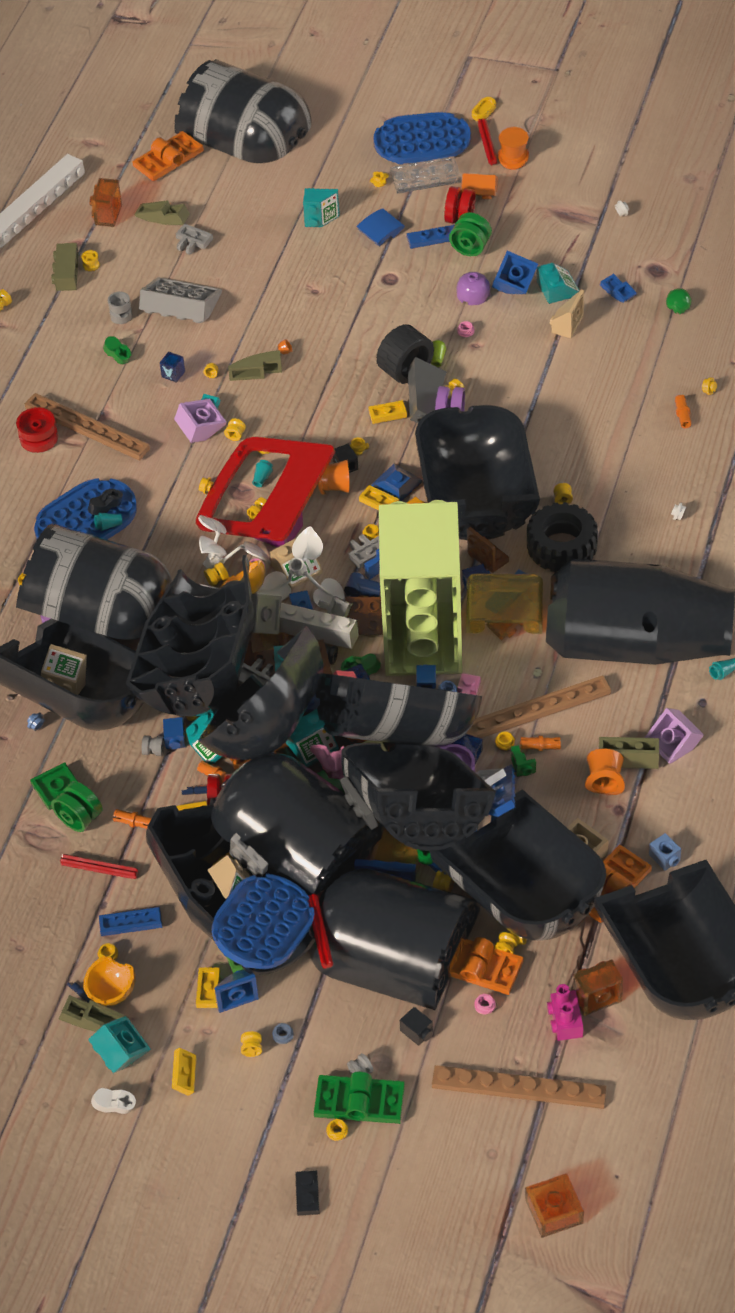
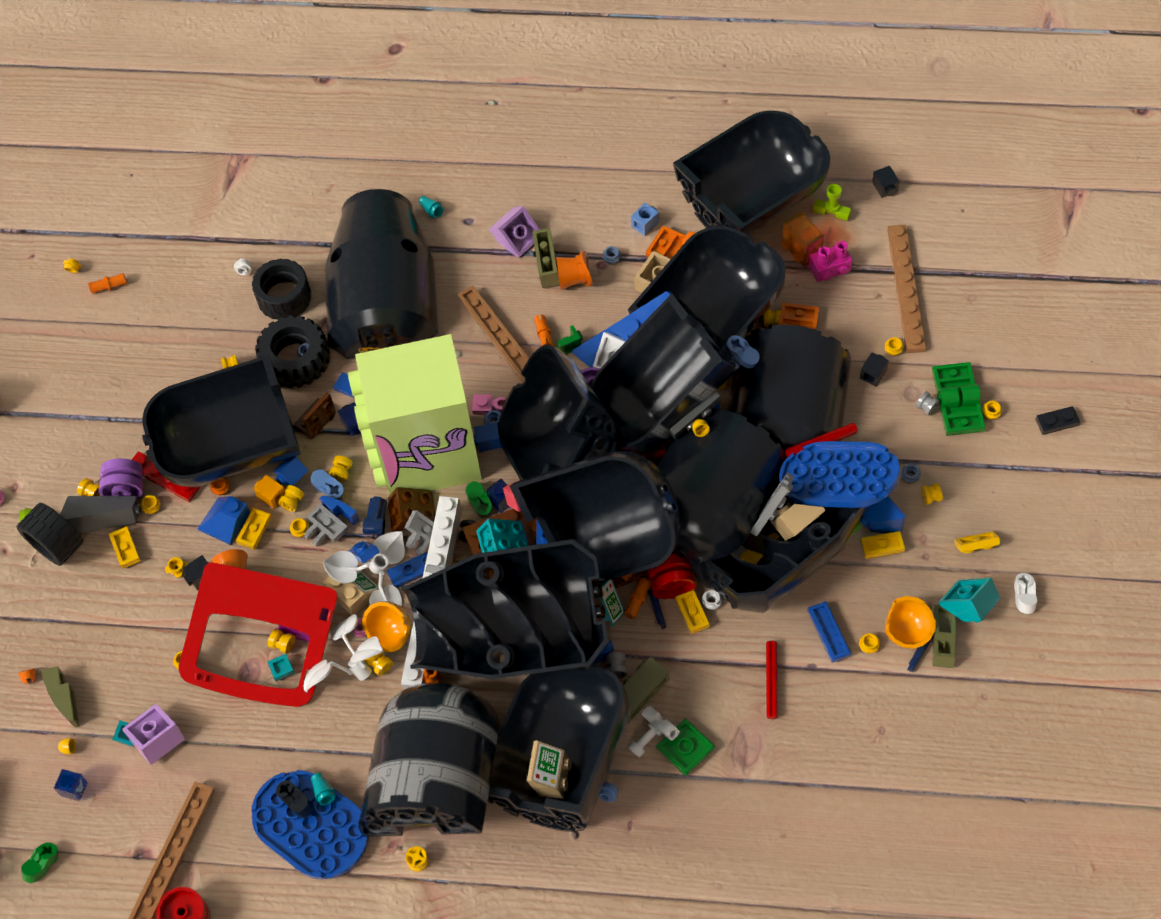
camera: 100 degrees left, 10 degrees up
(76, 806) = (716, 709): green wheel -> none
(79, 762) = (657, 726): none -> white bar
(123, 758) = (644, 685): none -> olive brick
(132, 819) = (709, 660): orange pin -> none
(205, 485) = (248, 706): yellow plate -> none
(235, 429) = (163, 695): yellow wheel -> none
(235, 508) = (280, 667): none -> teal plate
(262, 472) = (225, 652): teal cone -> none
(321, 565) = (364, 551): none -> blue plate
(339, 799) = (700, 428): none -> yellow hinge
(434, 869) = (743, 352): none -> medium blue piece
(443, 1055) = (893, 346): none -> yellow plate
(484, 999) = (834, 320): bright pink plate -> none
(554, 1205) = (1013, 237): clear orange brick -> none
(625, 812) = (609, 251): none -> sand blue plate
(643, 519) = (277, 272): none -> black tyre
(645, 1028) = (832, 205): none -> lime bar
(668, 1096) = (885, 181): none -> black brick

